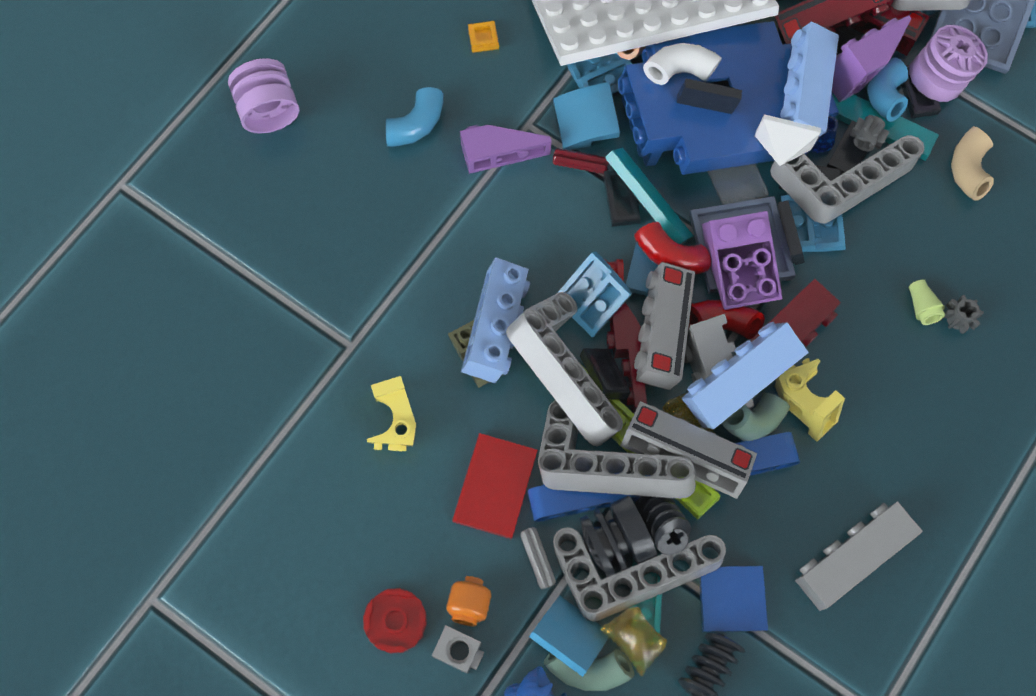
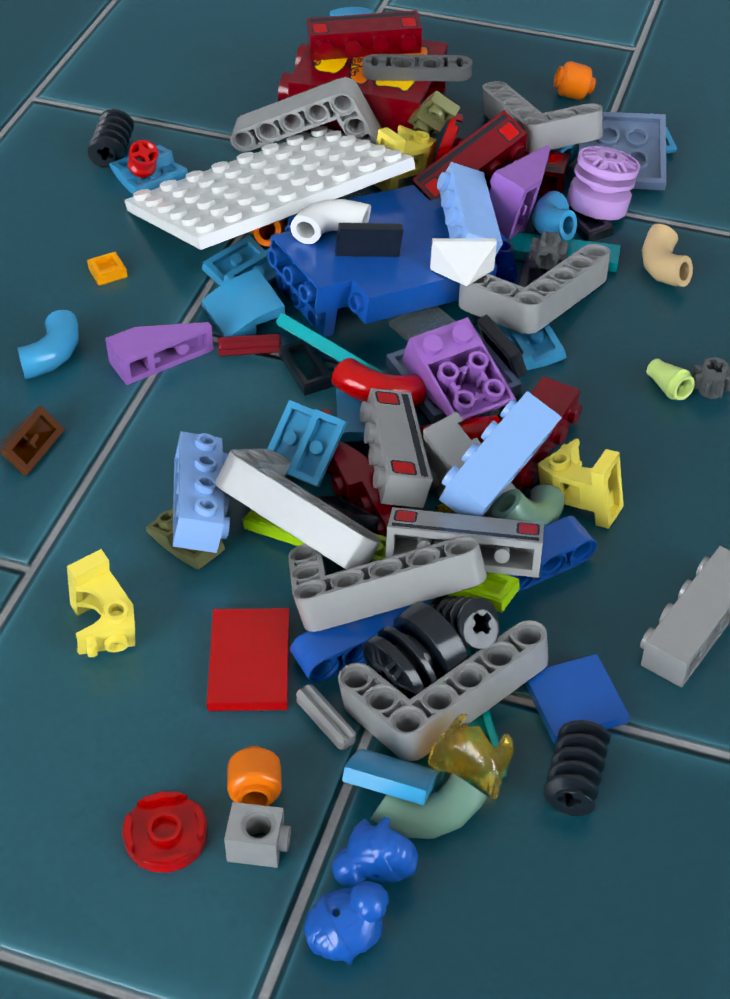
camera: 15 degrees left, 25 degrees down
(376, 216) = (30, 440): none -> reddish brown slope

